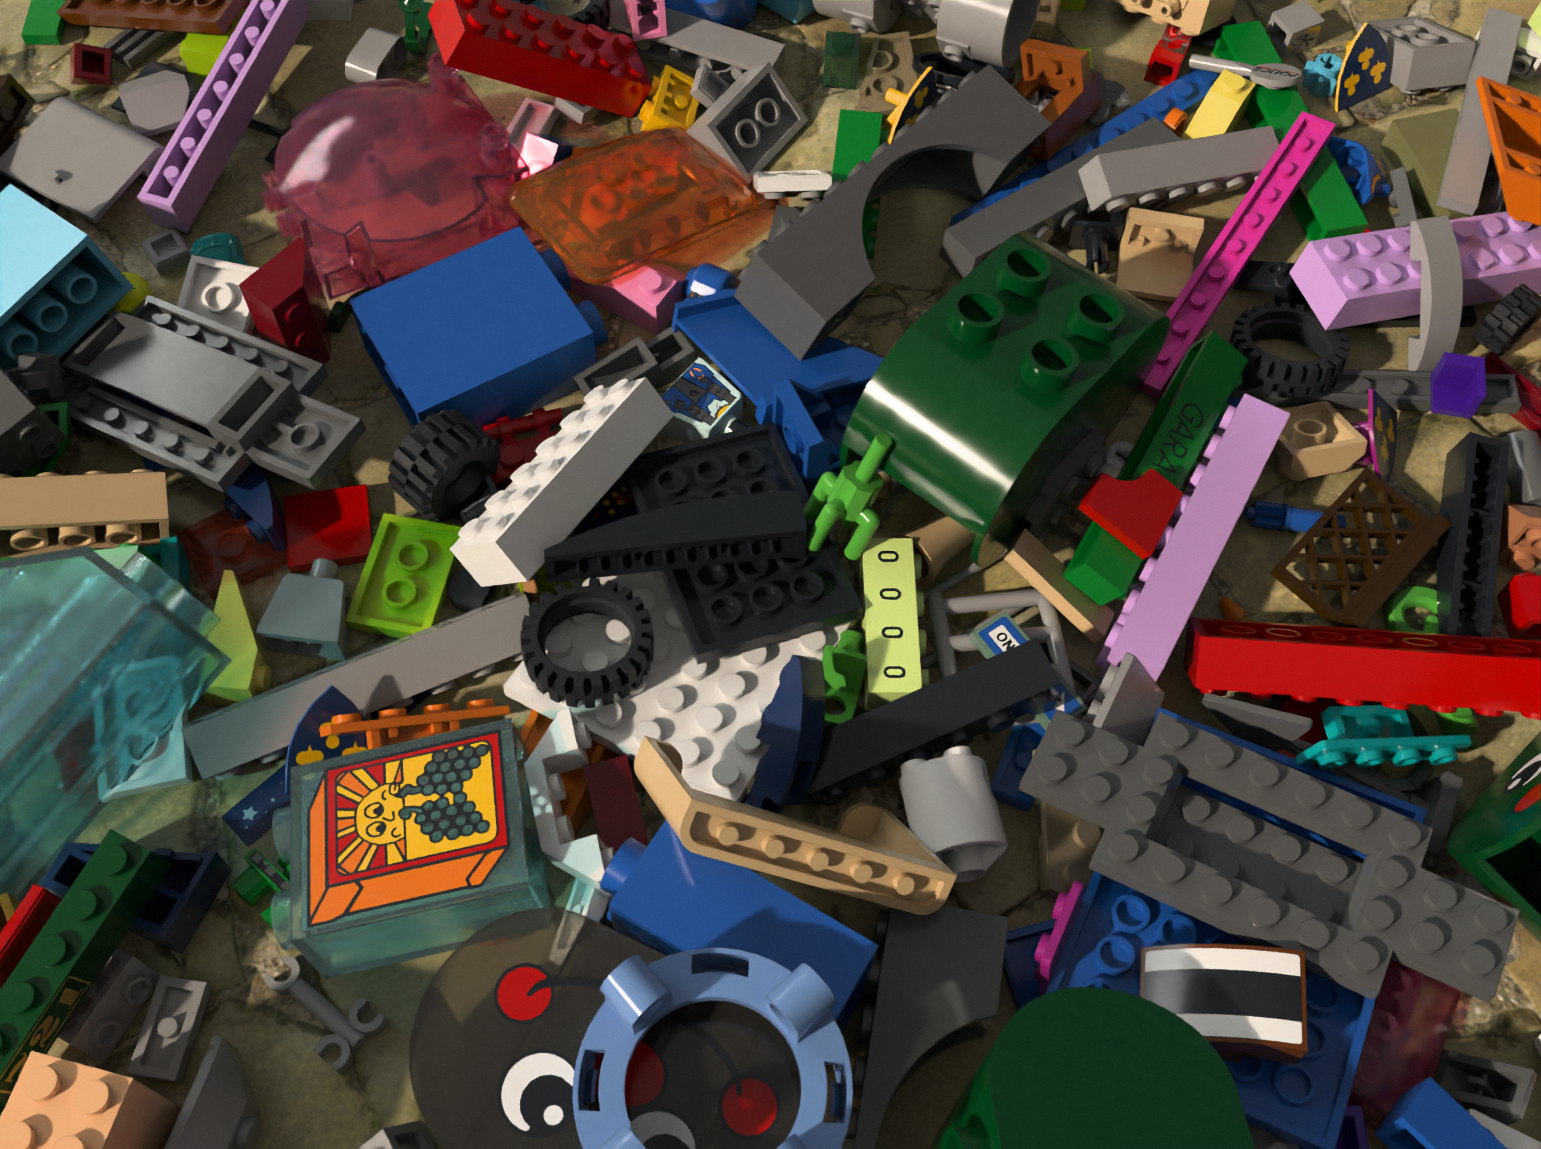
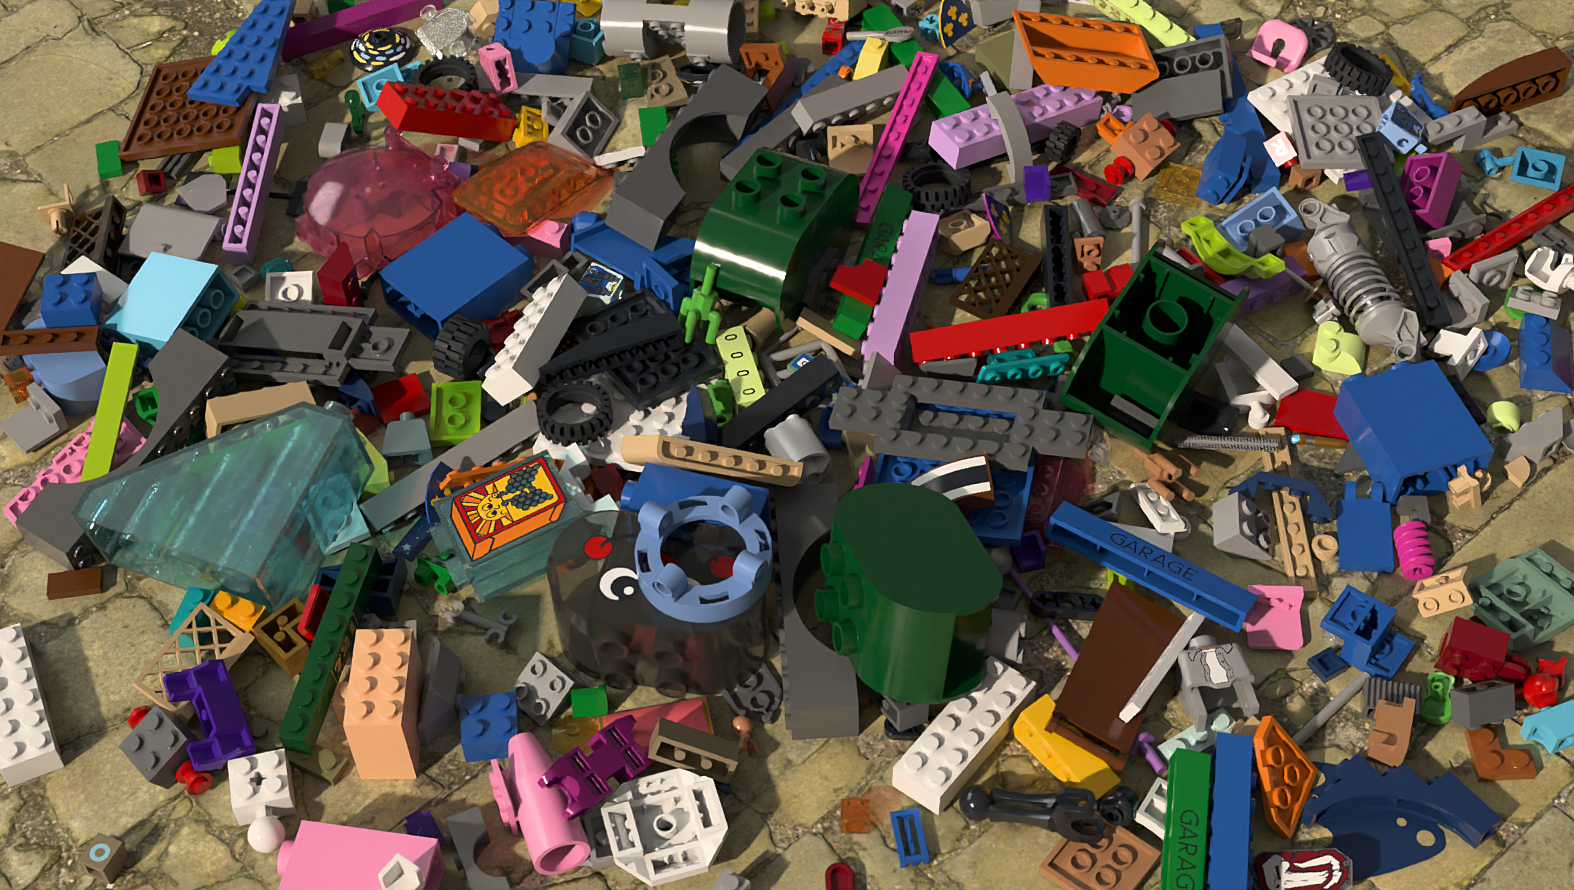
camera: 10 degrees left, 10 degrees down
(911, 105) = (681, 97): shield -> none

